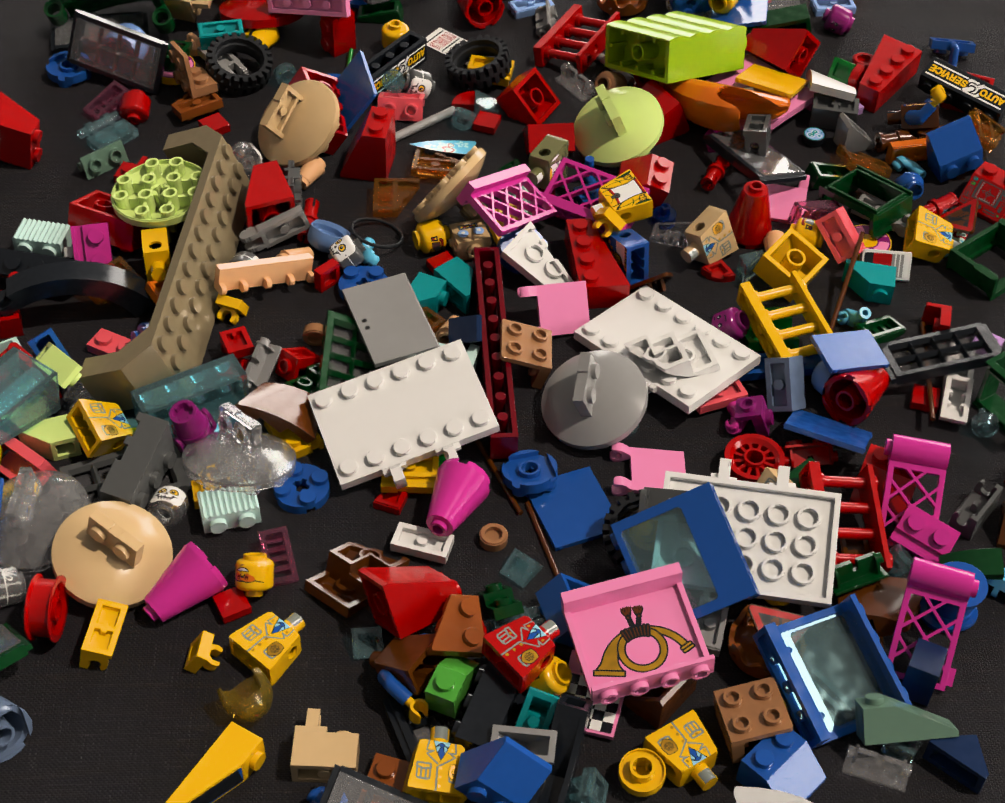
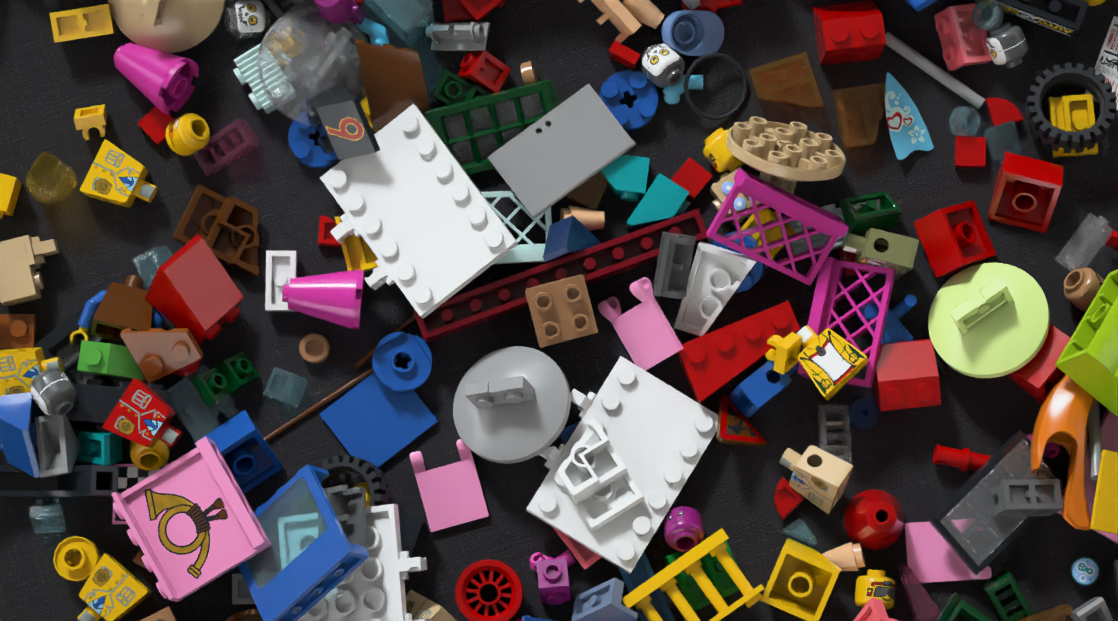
camera: 80 degrees right, 35 degrees up
(304, 436) = (341, 124): none -> black slope
(471, 721) = (53, 392): none -> dark grey head
(512, 269) = (673, 265): none -> dark grey hinge

